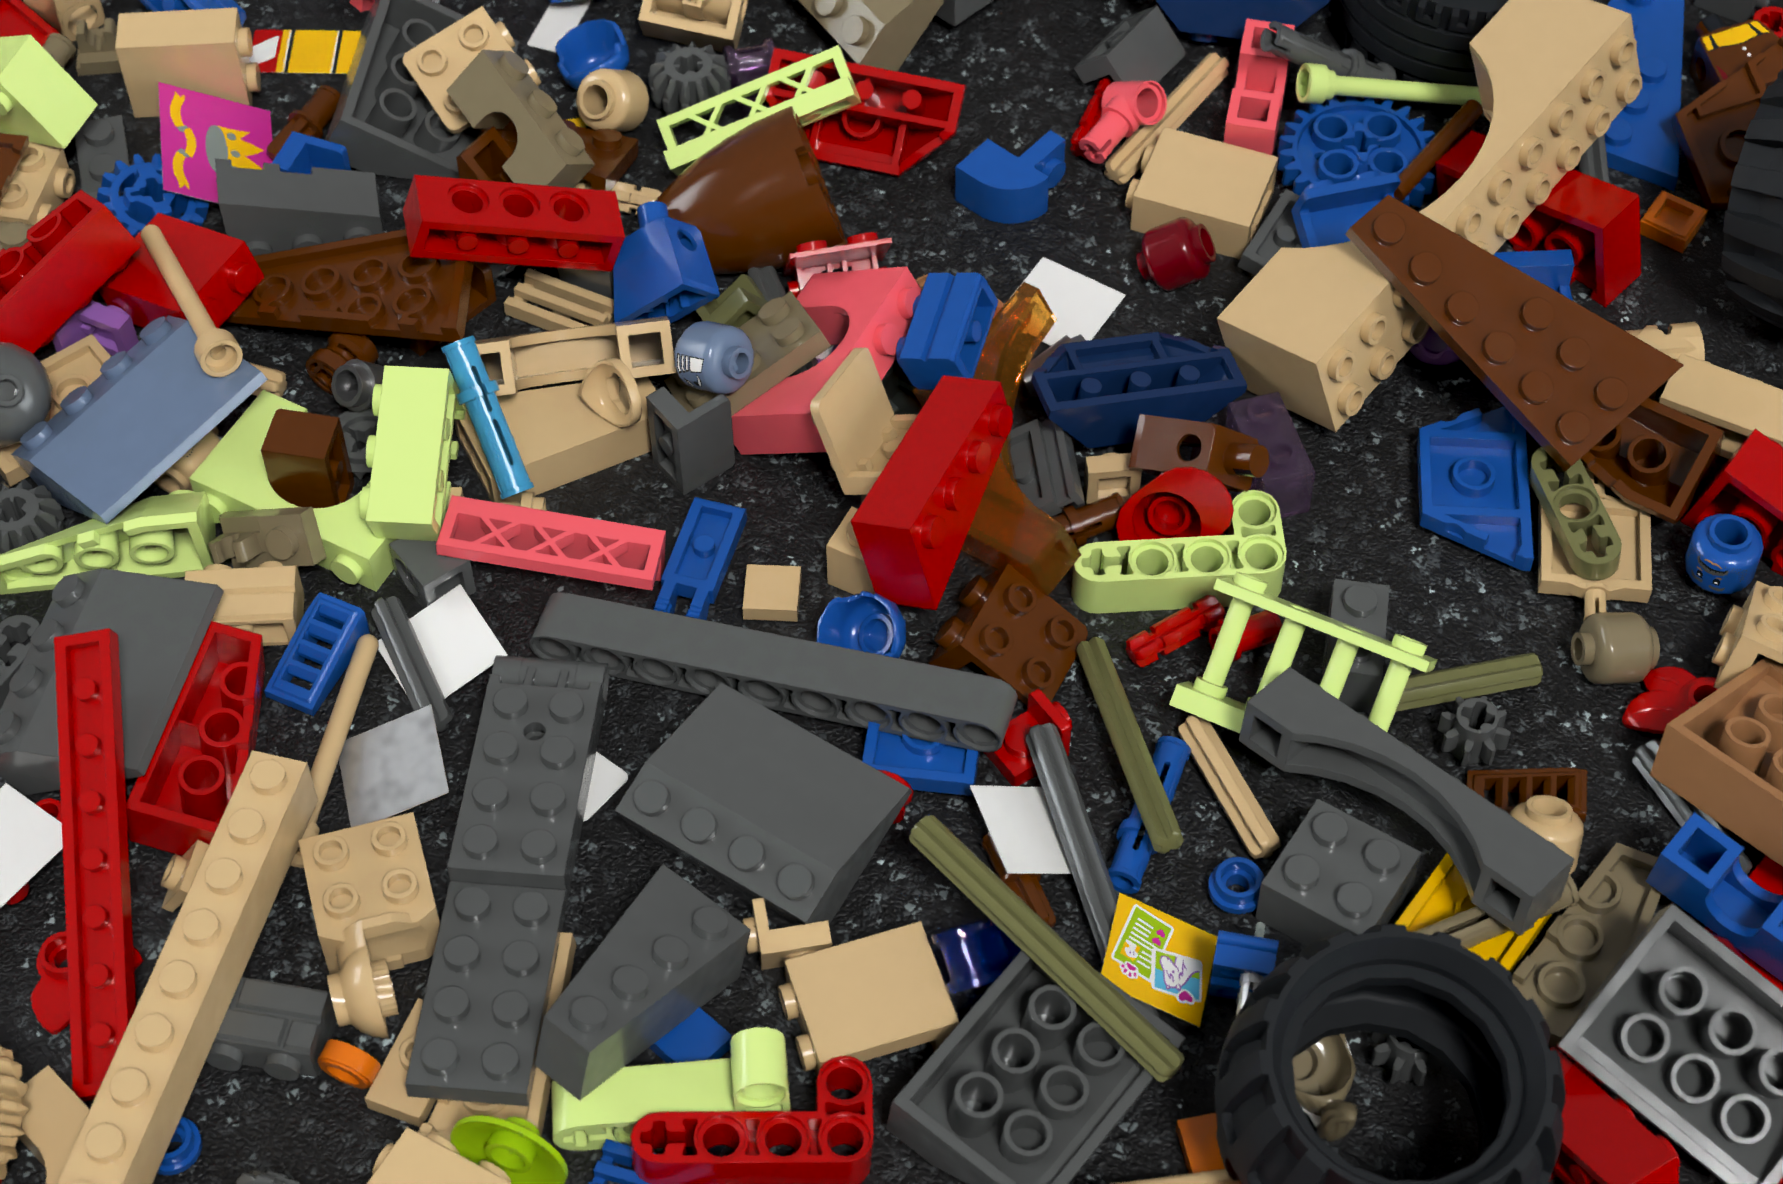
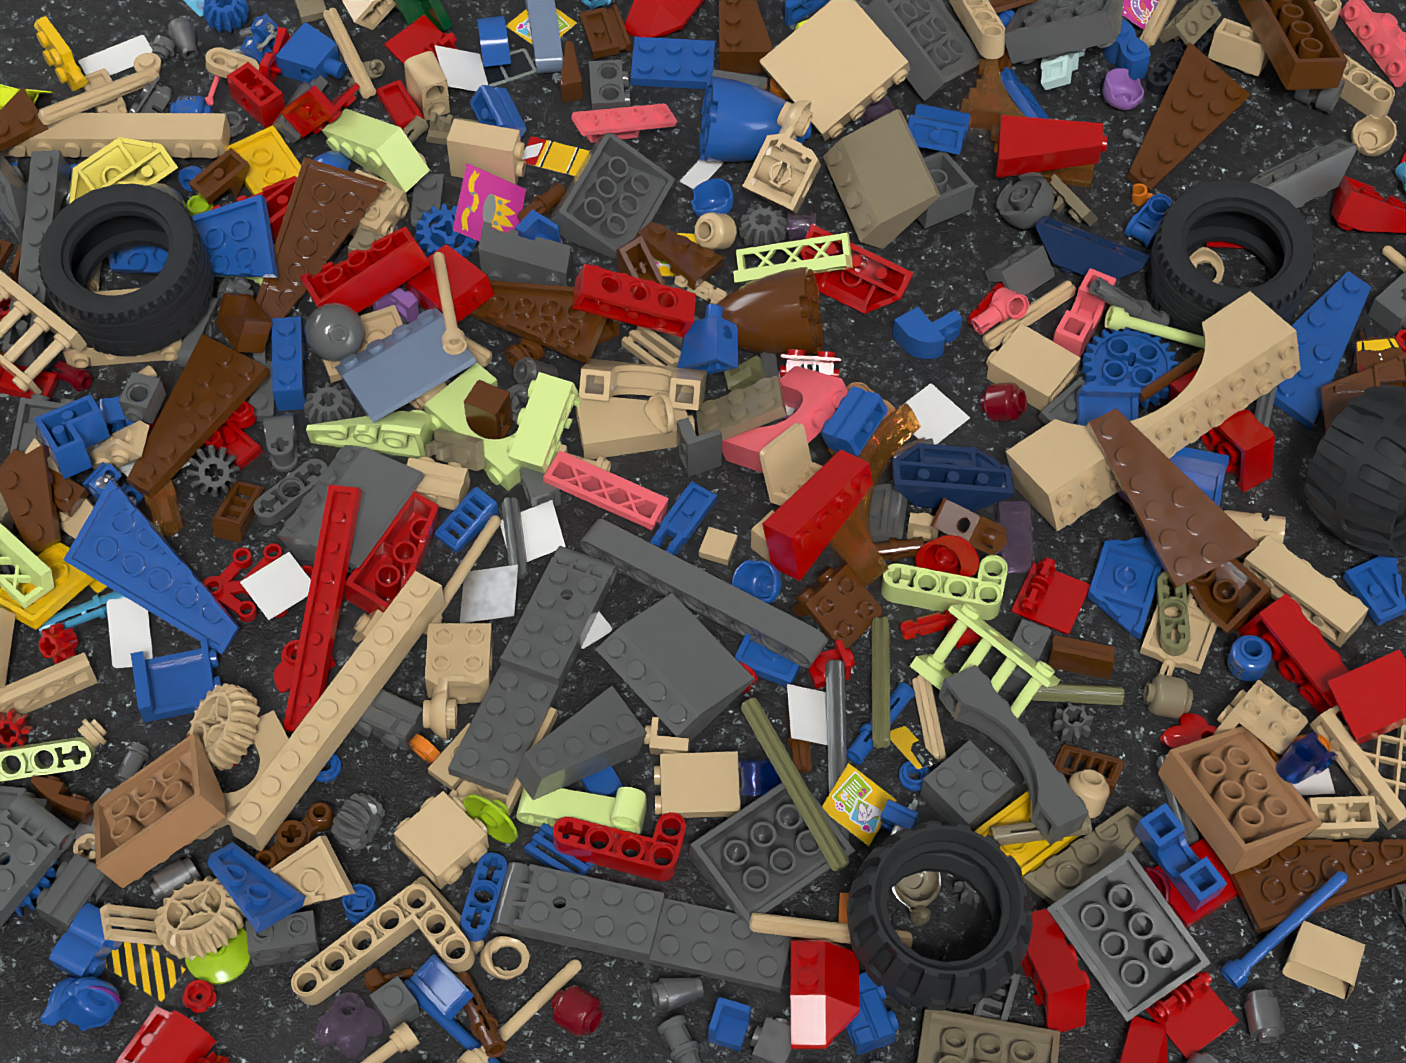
camera: 15 degrees right, 5 degrees up
(448, 53) = (640, 196): tan bracket -> none
(487, 416) = (588, 409): dark azure pin -> none
(501, 90) = (667, 258): dark tan arch -> none
(714, 357) = (719, 407): sand blue head -> none
(1220, 841) = (912, 748): none -> yellow sticker
(1360, 538) = (1050, 597): none -> red hinge
(1451, 620) = (1082, 657): none -> reddish brown panel
(1672, 221) = (1299, 449): orange tile -> none

